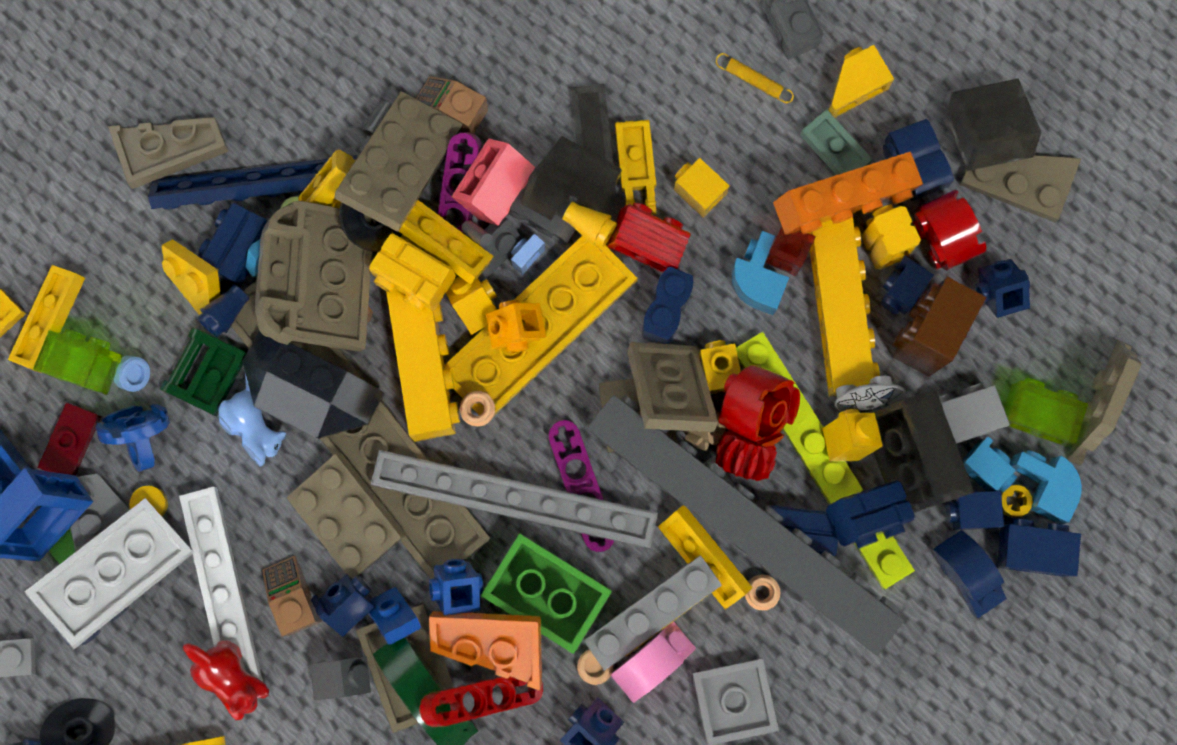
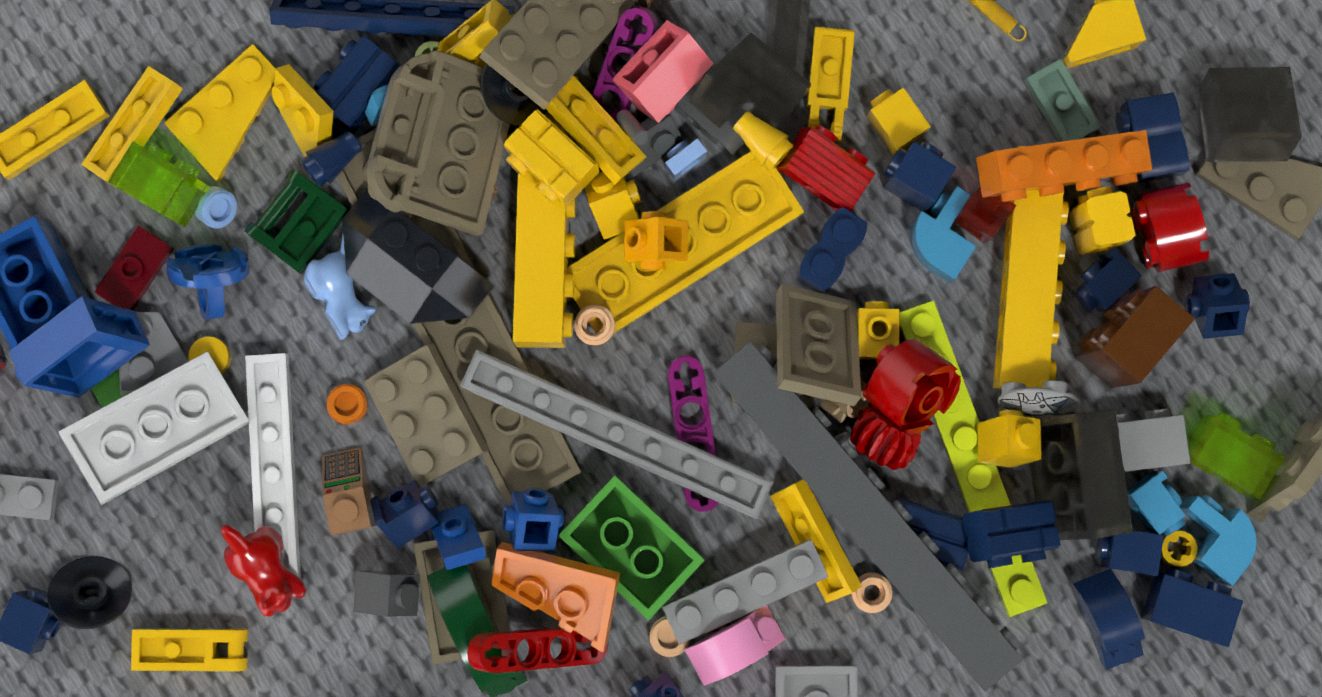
camera: 15 degrees right, 5 degrees up
(124, 290) = (222, 112): none -> yellow wing
(276, 520) = (347, 404): none -> orange tile
(727, 227) = (918, 175): none -> dark blue brick

